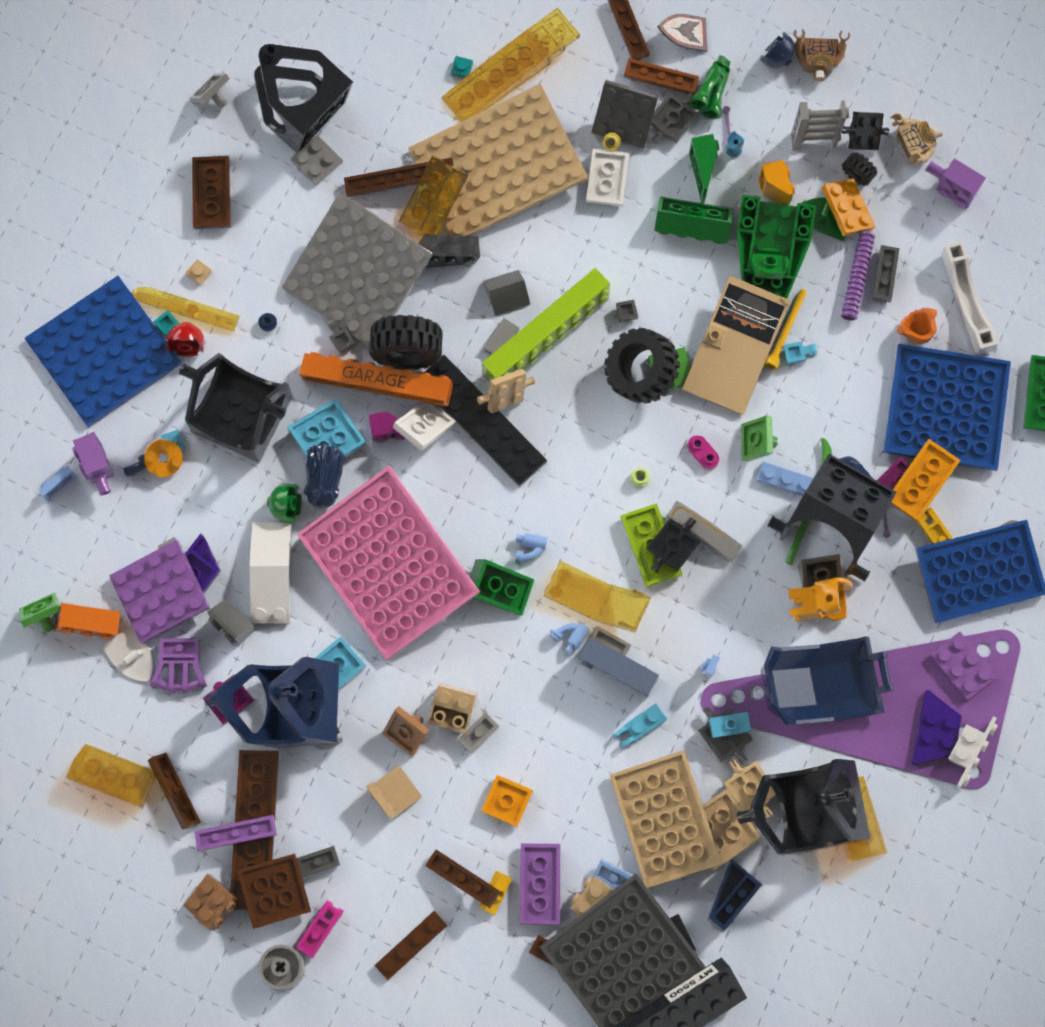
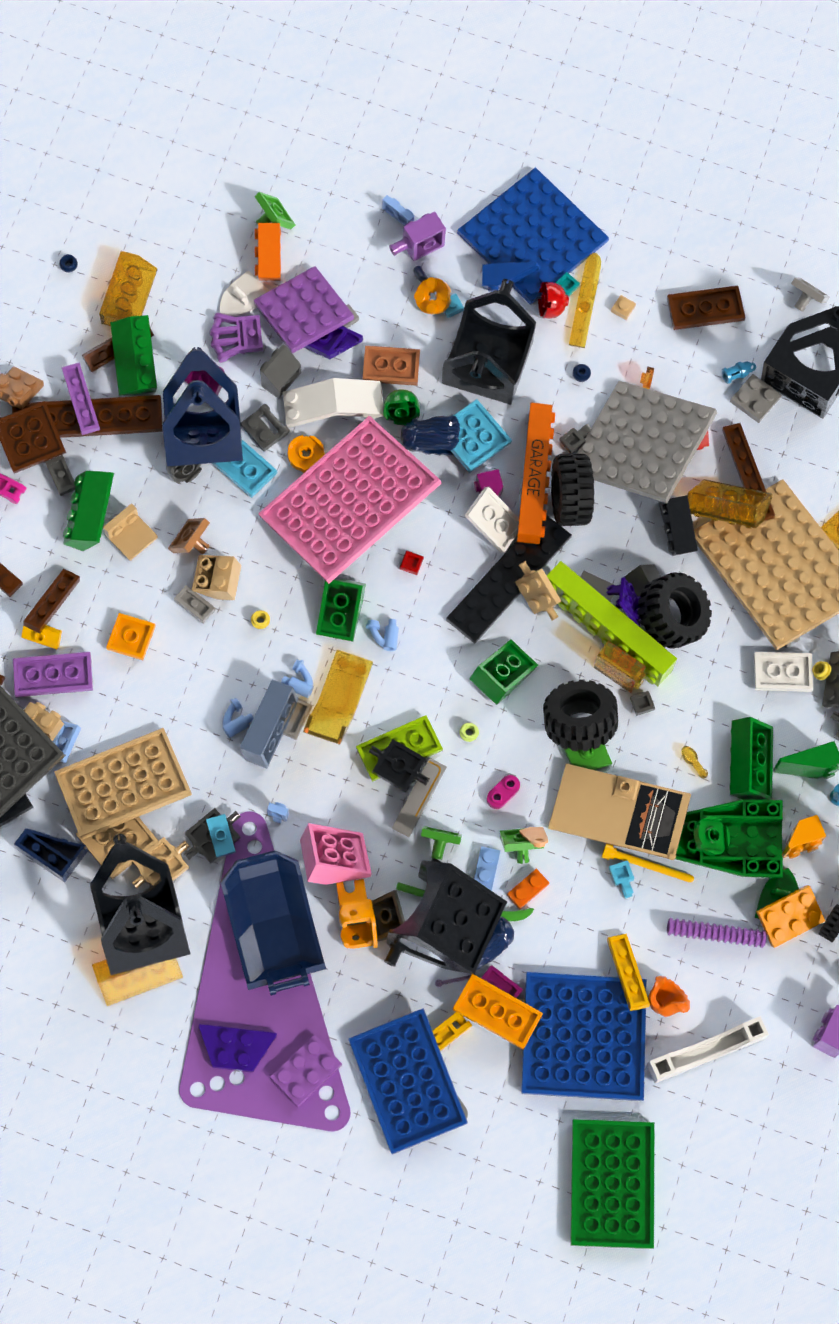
camera: 80 degrees right, 5 degrees down
(60, 838) = (68, 259): none -> dark blue plate
(150, 384) = (494, 273): none -> blue slope
(192, 772) = (133, 355): none -> green slope
(235, 509) = (391, 365): none -> nougat plate
(285, 258) = (646, 378): none -> clear orange plate
(286, 172) = (739, 370): none -> dark azure piece
(291, 651) = (260, 431): none -> dark grey plate
(324, 595) = (305, 443): none -> light orange plate
(365, 832) = (88, 509): none -> green slope
(455, 513) = (411, 562): none -> red tile
(501, 662) = (260, 614): none -> light yellow plate
(521, 308) = (627, 599): none -> dark purple plate
(542, 264) = (692, 605): none -> black tyre
(582, 436) = (503, 671): none -> green slope
(592, 324) = (620, 667): none -> clear yellow brick
(610, 698) = (237, 725): none -> light blue plant
(641, 725) = (216, 755): medium azure hinge -> none
(685, 274) = (691, 757): none -> clear yellow piece
(749, 513) = (440, 839): none -> bright green tile
(758, 423) = (535, 835): none -> light nougat piece
(759, 616) = (334, 855): none -> bright pink slope
(801, 440) = (528, 889): none -> orange plate
(885, 273) = (723, 961): dark grey plate -> none
(891, 358) = (628, 972): none -> yellow tile
(968, 748) = (217, 1079): white bracket -> none

